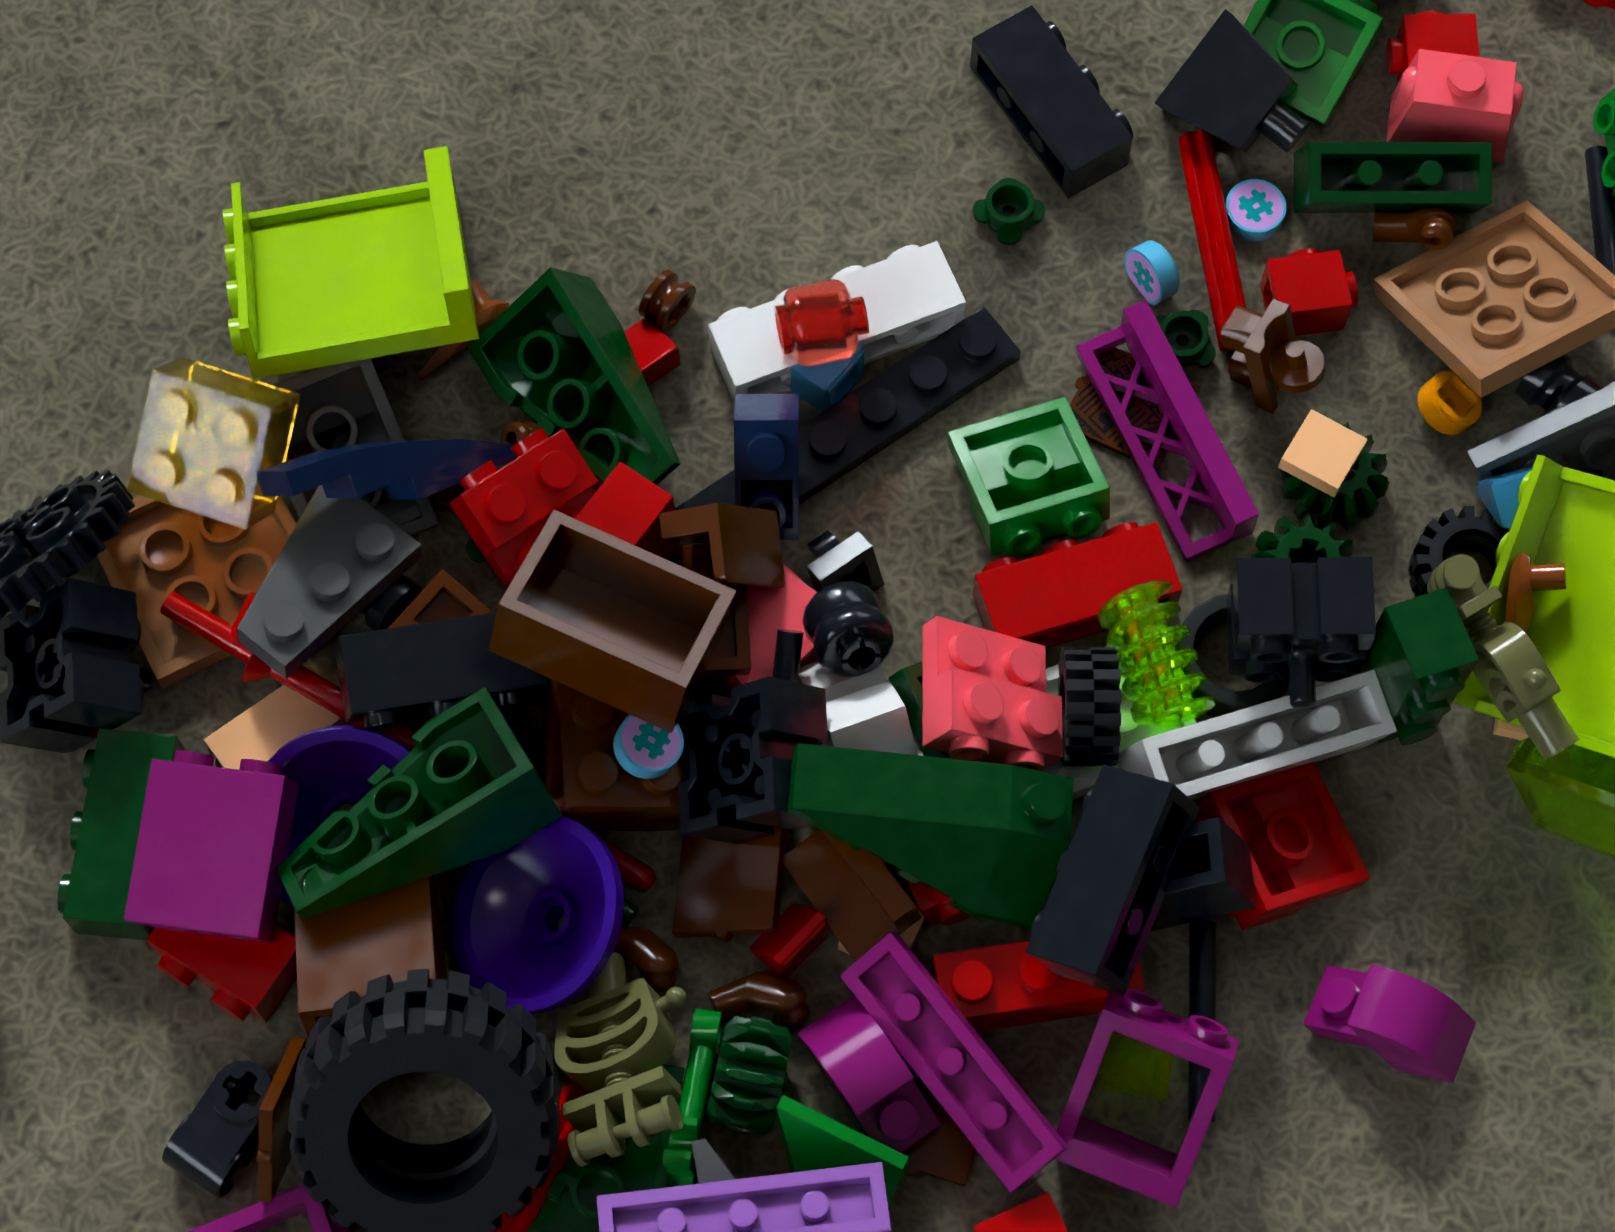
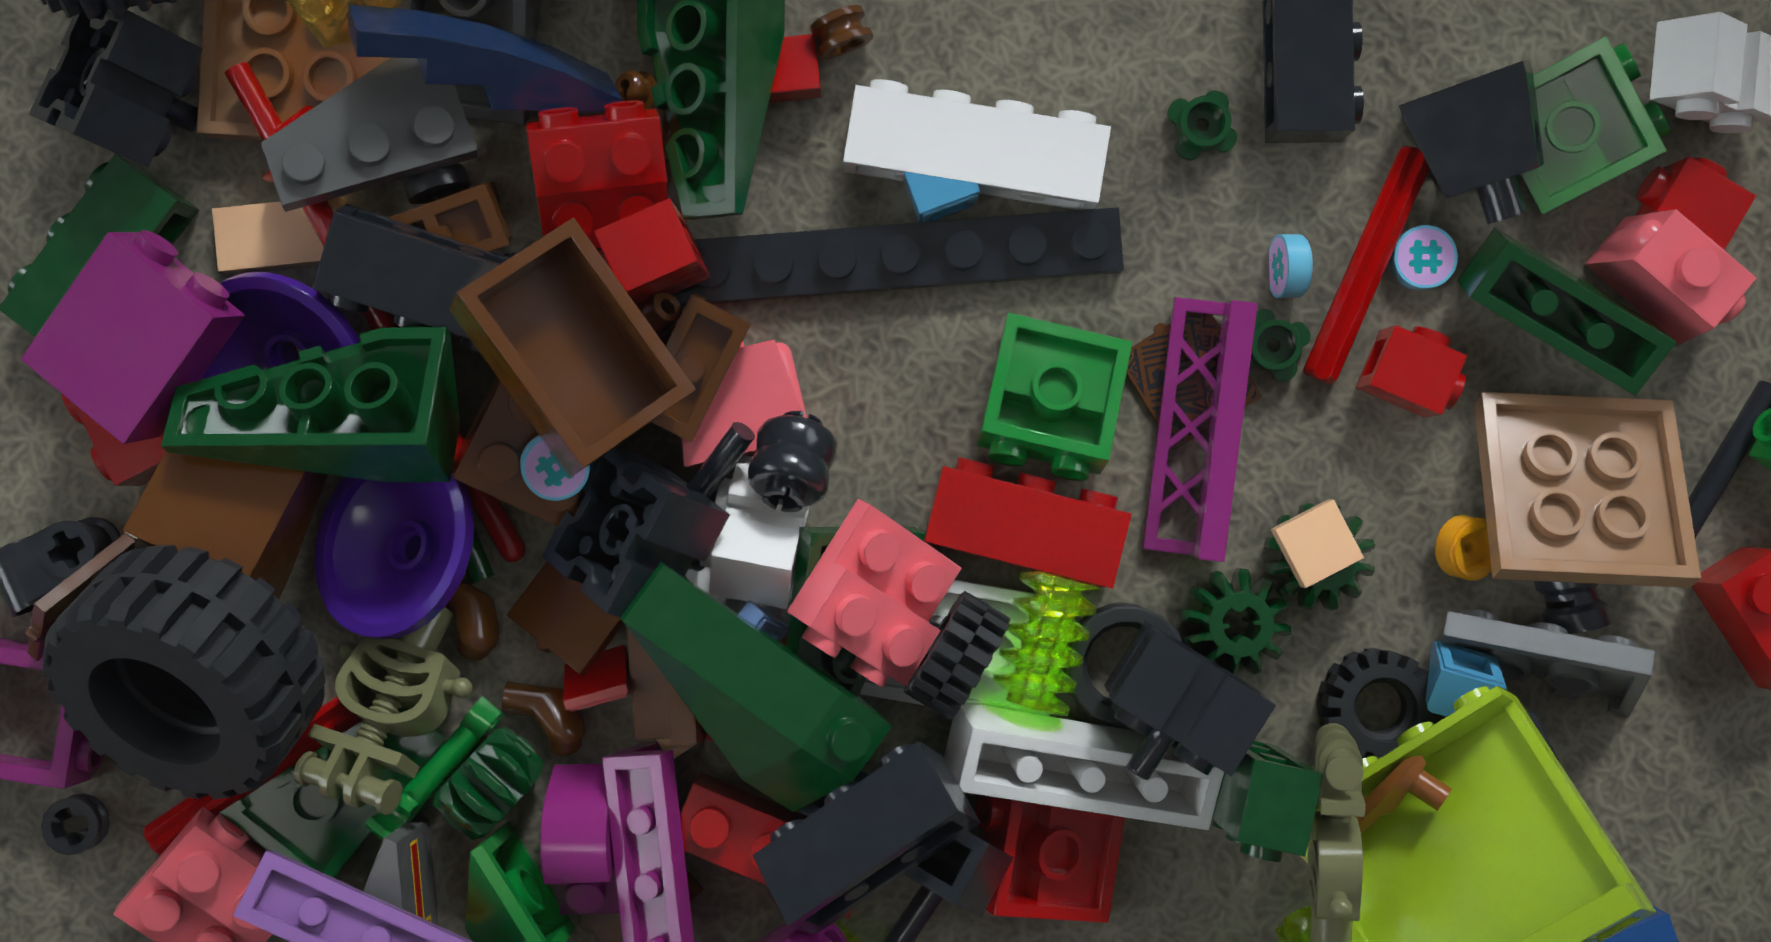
camera: 30 degrees right, 20 degrees up
(741, 541) = (740, 326): reddish brown panel -> none
(768, 456) = (824, 253): dark blue slope -> none
(820, 322) = (949, 151): clear red head -> none
(843, 561) = (837, 385): black tile -> none
(1269, 354) = (1338, 419): reddish brown hips -> none
(1428, 225) = (1567, 377): reddish brown arm -> none

